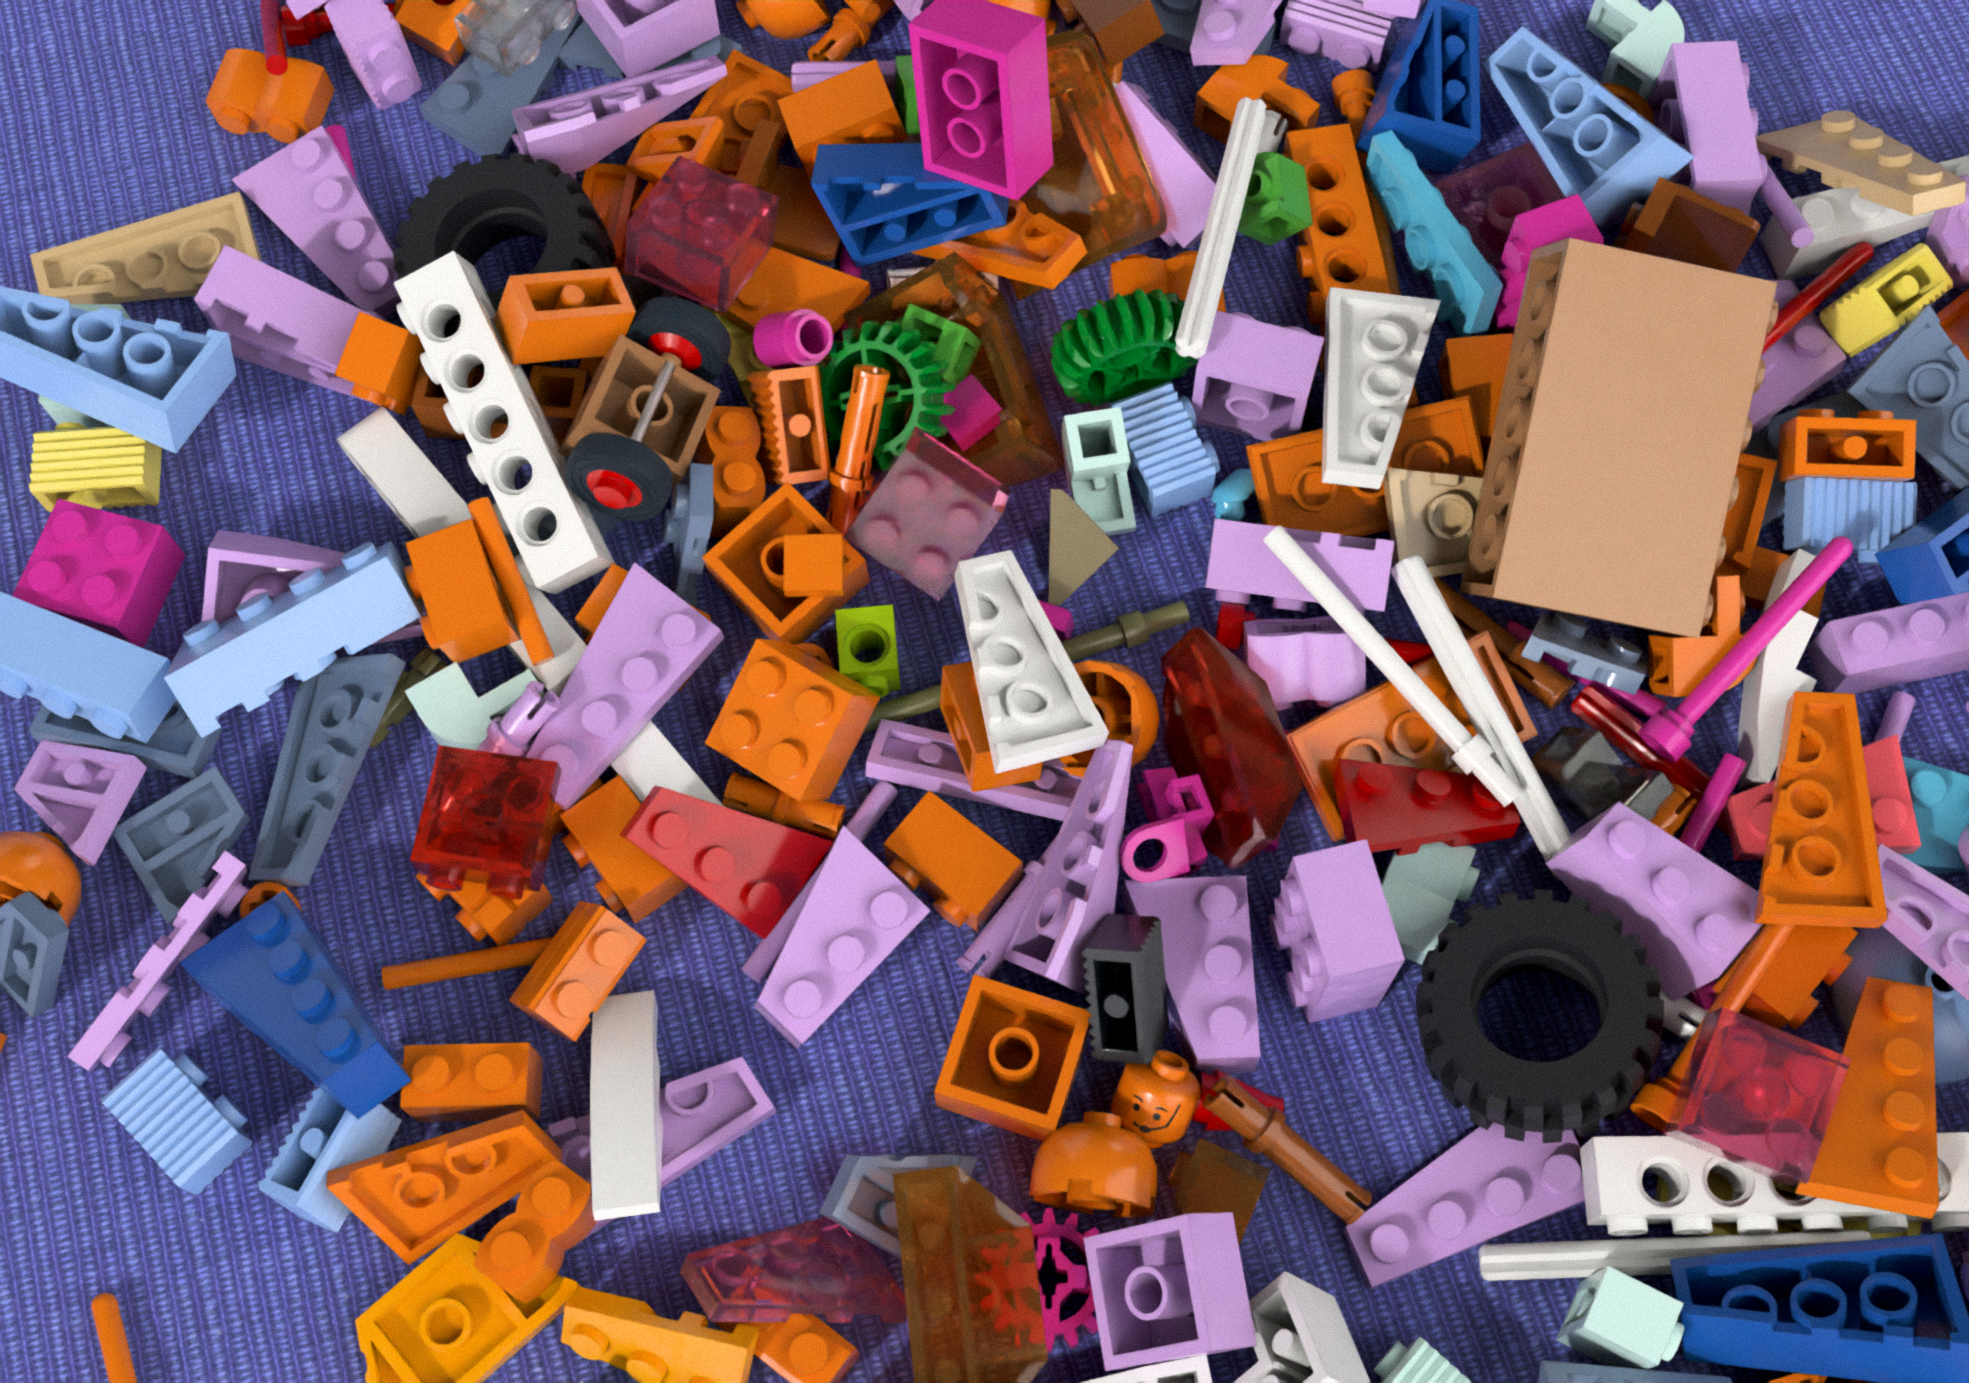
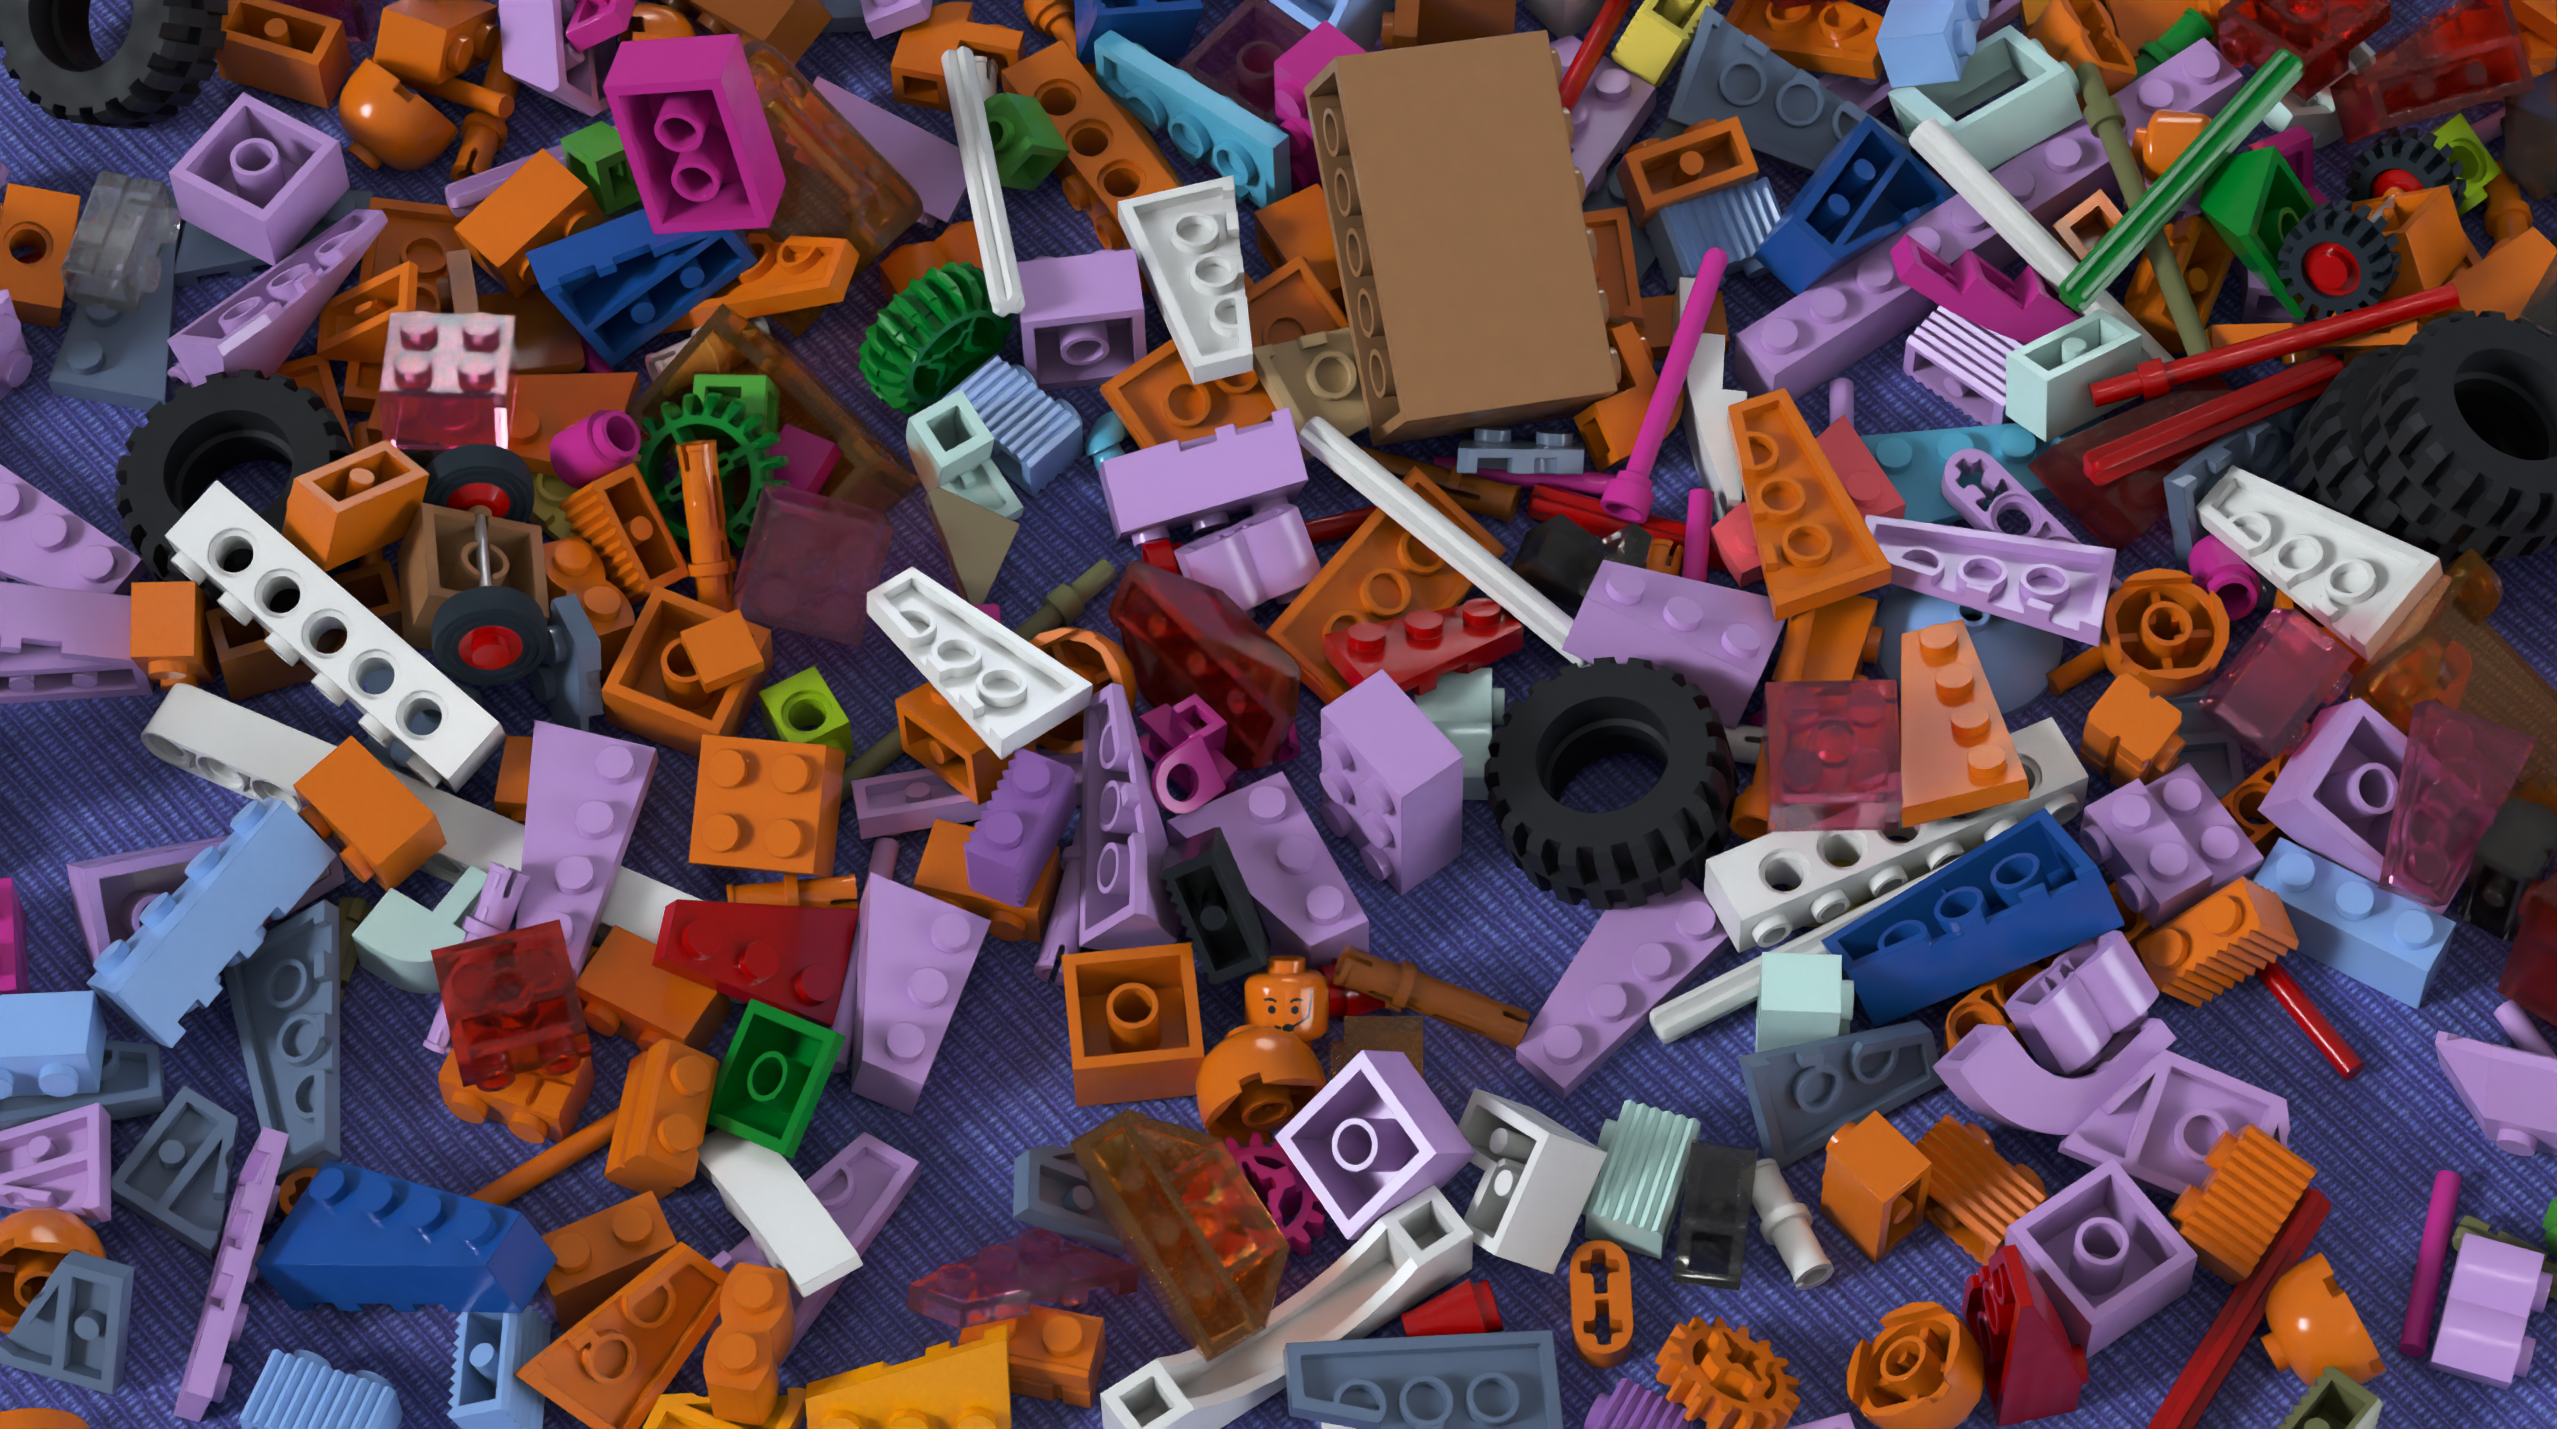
camera: 25 degrees left, 10 degrees down
(511, 581) = (449, 816): orange bar -> none
(683, 978) = (773, 1077): none -> green slope
(990, 838) = (1020, 827): none -> medium lavender brick
(1471, 752) = (1447, 578): white bar -> none

